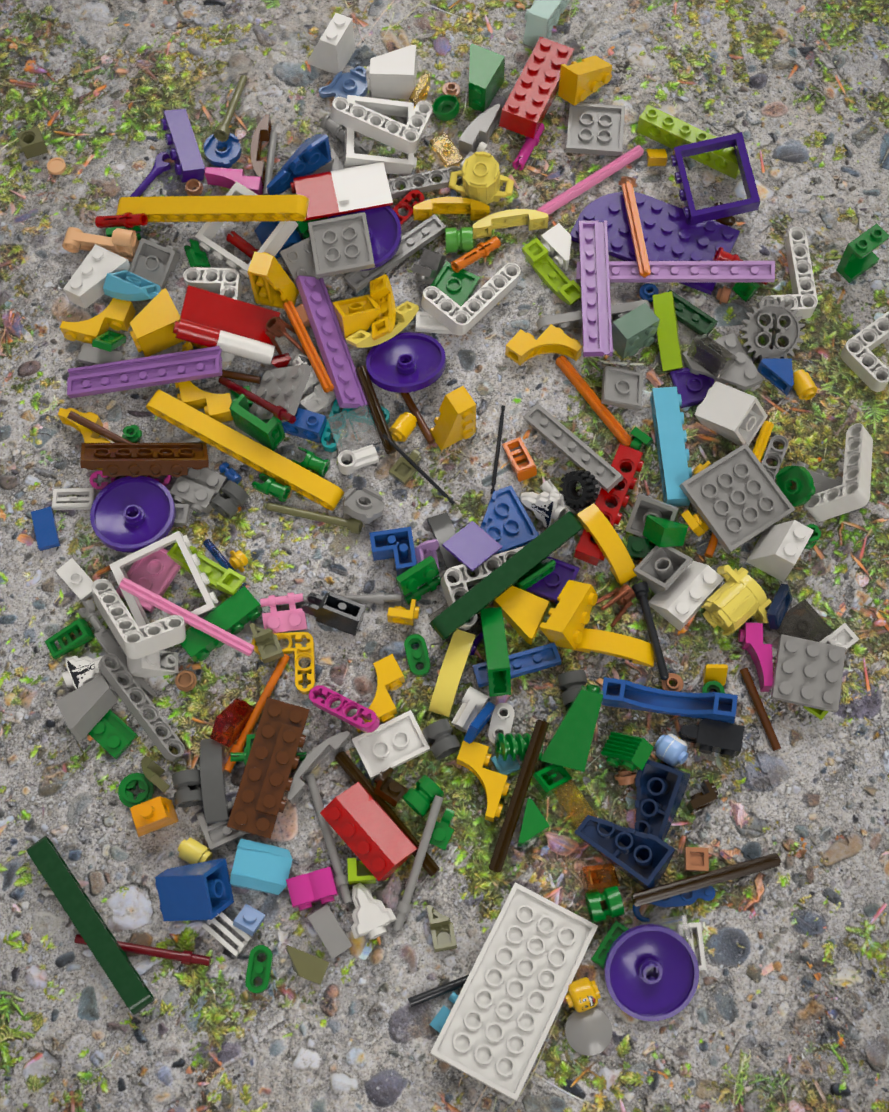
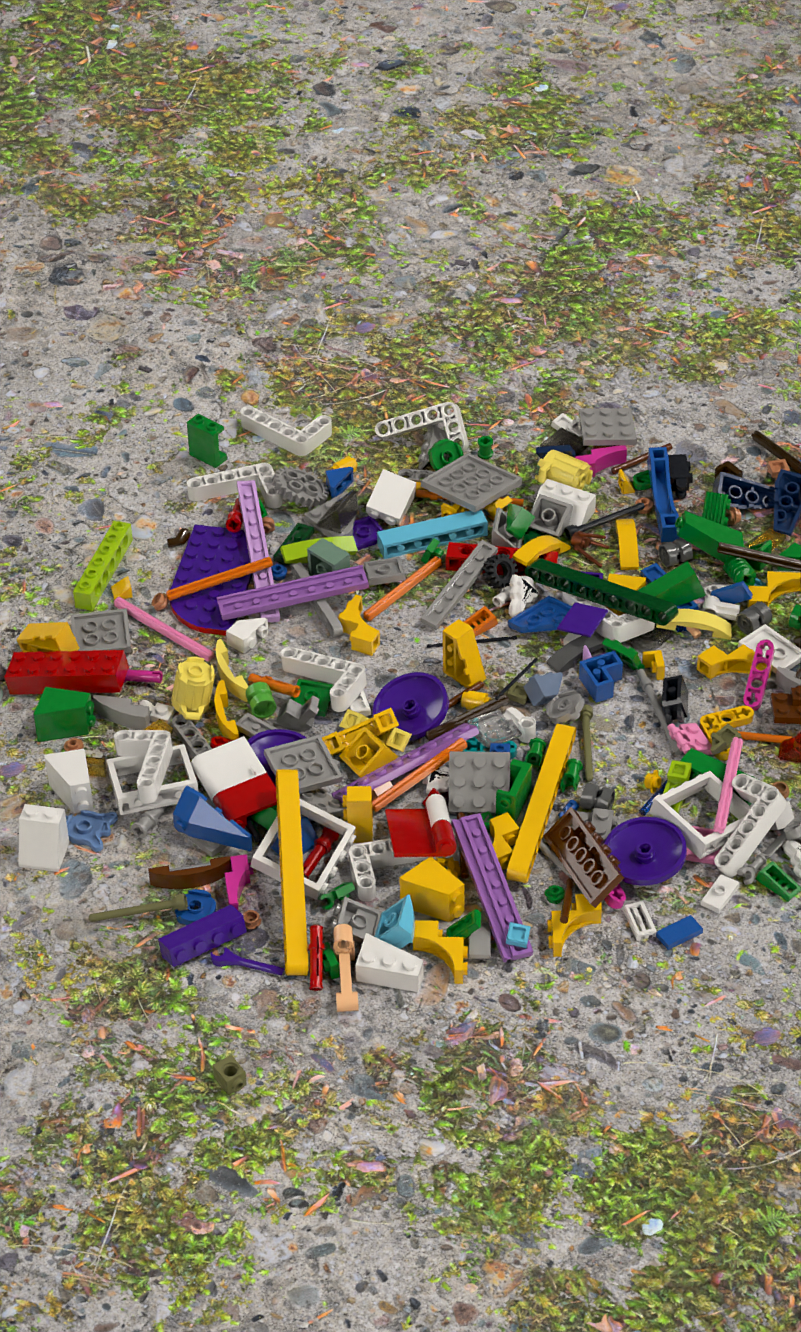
camera: 105 degrees left, 25 degrees down
(56, 166) = (250, 1052): light nougat piece -> none
(83, 382) = (518, 935): none -> medium azure tile
(276, 327) = (411, 794): copper plant -> none
(278, 411) = (510, 754): dark red bar -> none
(395, 491) = (543, 688): none -> sand blue slope
(417, 656) = (687, 649): green plate -> none
(446, 107) = (101, 740): green hair -> none
(550, 273) = (281, 634): lime slope -> none
(570, 614) = (614, 559): yellow wedge -> none
(671, 749) = (697, 493): light blue head -> none
(720, 211) = (149, 510): dark purple window -> none
(780, 548) = (508, 448): white slope -> none

